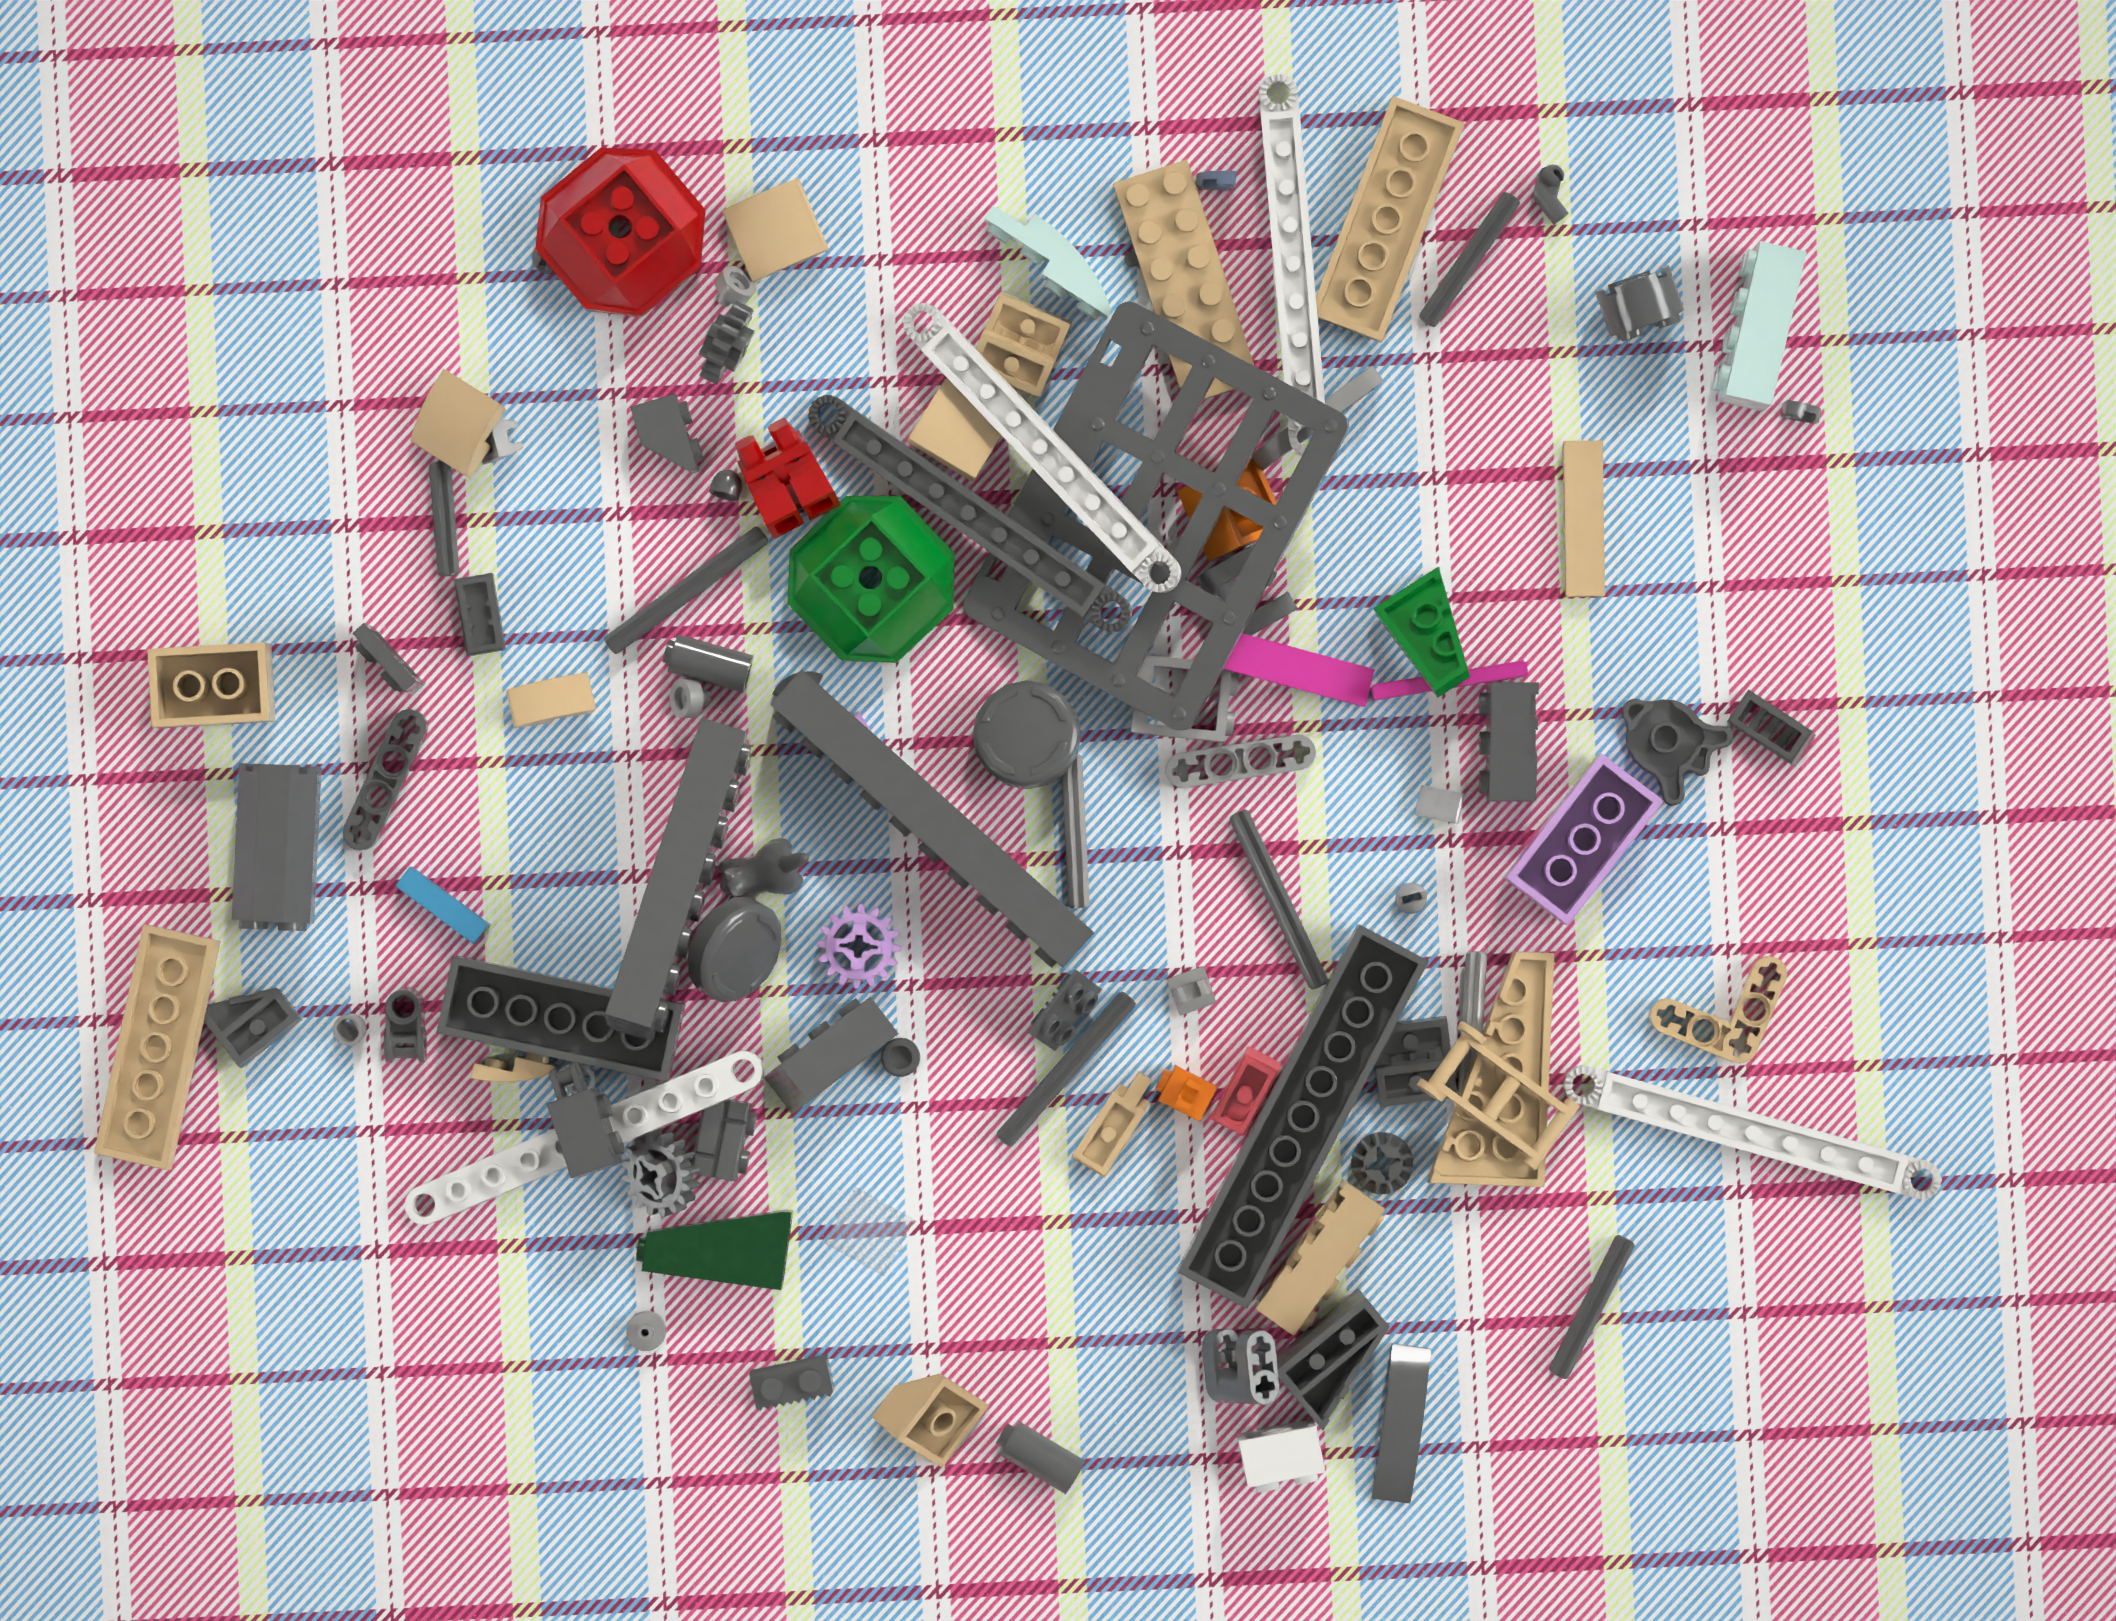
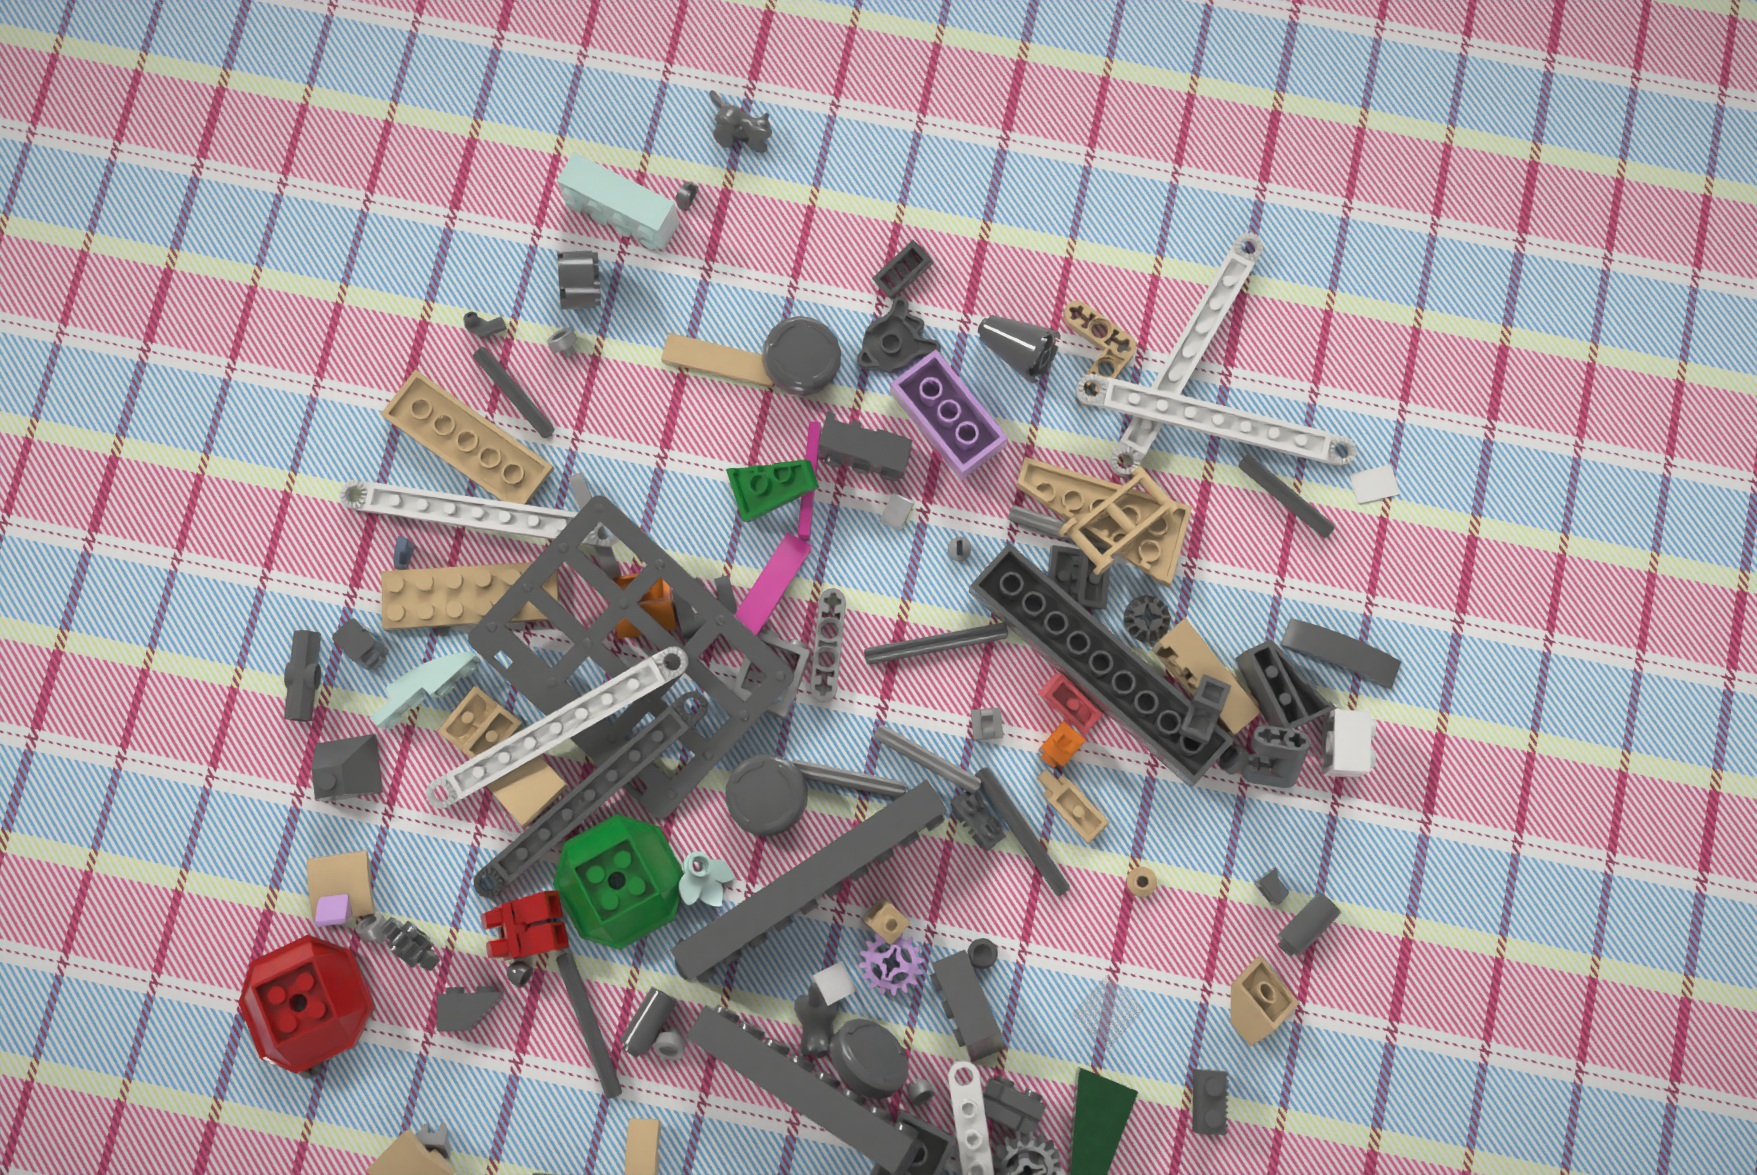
camera: 75 degrees left, 10 degrees down
(711, 1022) = (920, 1092): none -> light grey hinge
(742, 233) = (333, 910): none -> lavender slope
(816, 882) = (834, 983): none -> white sticker
(897, 688) = (704, 884): none -> light aqua plate
(909, 926) = (886, 920): none -> tan bracket
(924, 192) = (346, 768): none -> dark grey slope
(1026, 100) = (302, 676): none -> dark grey piece
(1037, 1223) = (1132, 882): none -> tan plate
(1076, 1401) = (1272, 887): none -> dark grey slope
(1082, 166) = (360, 644): none -> dark grey brick
(1126, 926) = (927, 759): none -> light grey axle
(1226, 1316) = (1234, 759): none -> dark grey tile
(1275, 1262) = (1205, 709): none -> dark grey slope
(1554, 305) = (563, 341): none -> light grey tile
(1614, 625) = (801, 355): none -> dark grey piece
(1639, 1419) = (1374, 484): none -> white sticker
(1667, 1191) = (1216, 420): none -> white plate
(1703, 909) = (1020, 344): none -> dark grey cone
(1914, 450) = (735, 125): none -> dark grey animal

